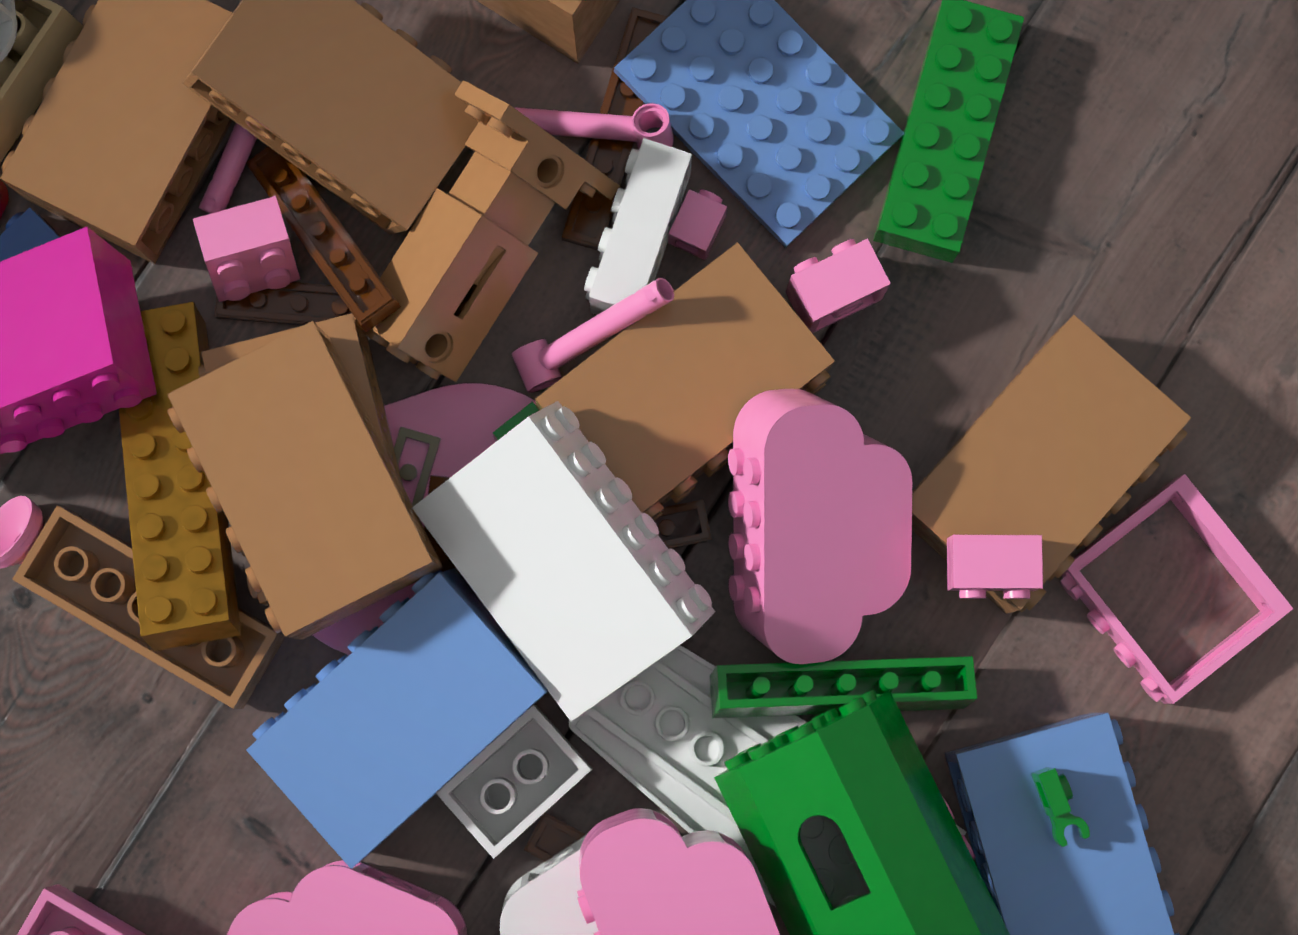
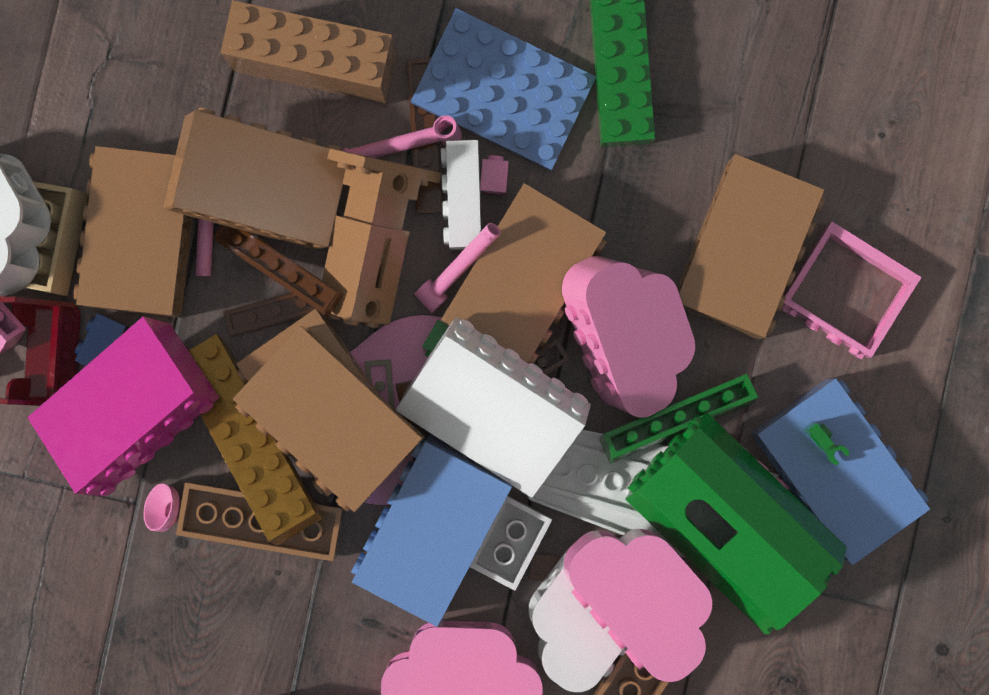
camera: 20 degrees left, 5 degrees up
(246, 249) = (236, 291): bright pink brick -> none
(837, 285) = (590, 185): bright pink brick -> none
(994, 564) = (741, 317): bright pink brick -> none

